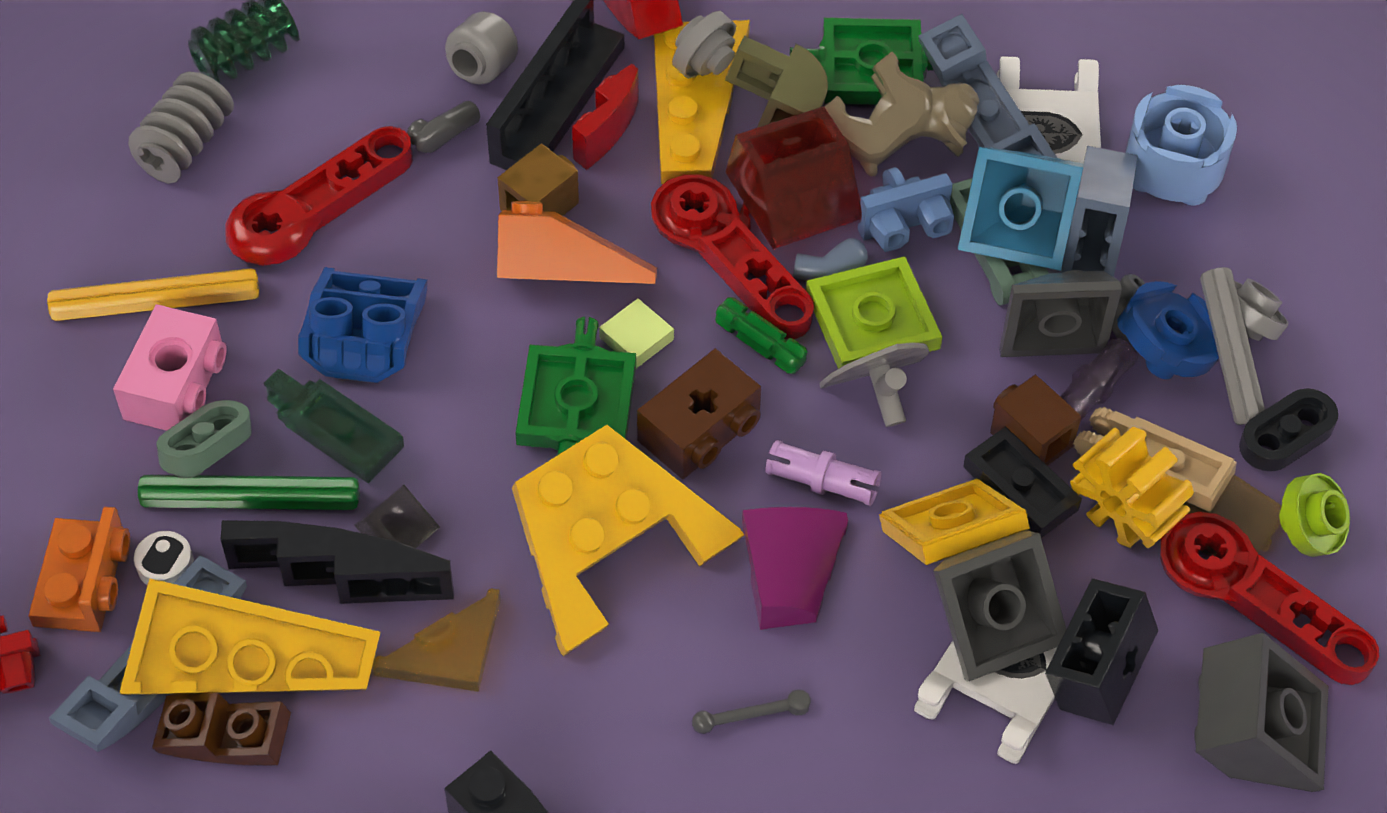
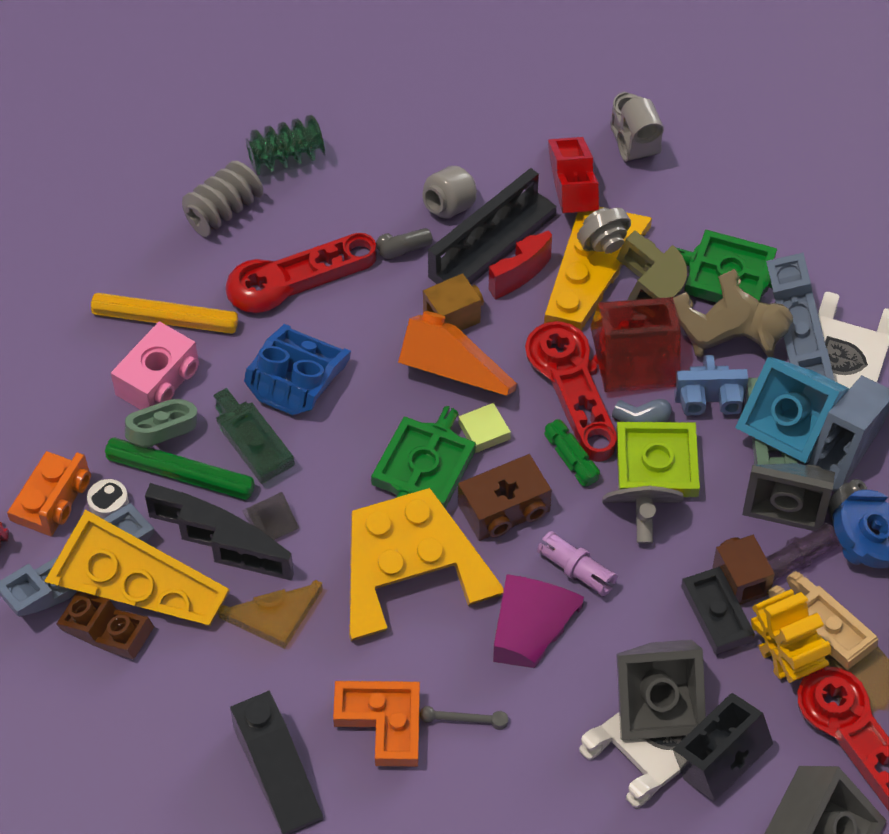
camera: 20 degrees right, 0 degrees up
(649, 728) = (390, 708): none -> orange plate
(953, 521) = (653, 623): yellow tile -> none

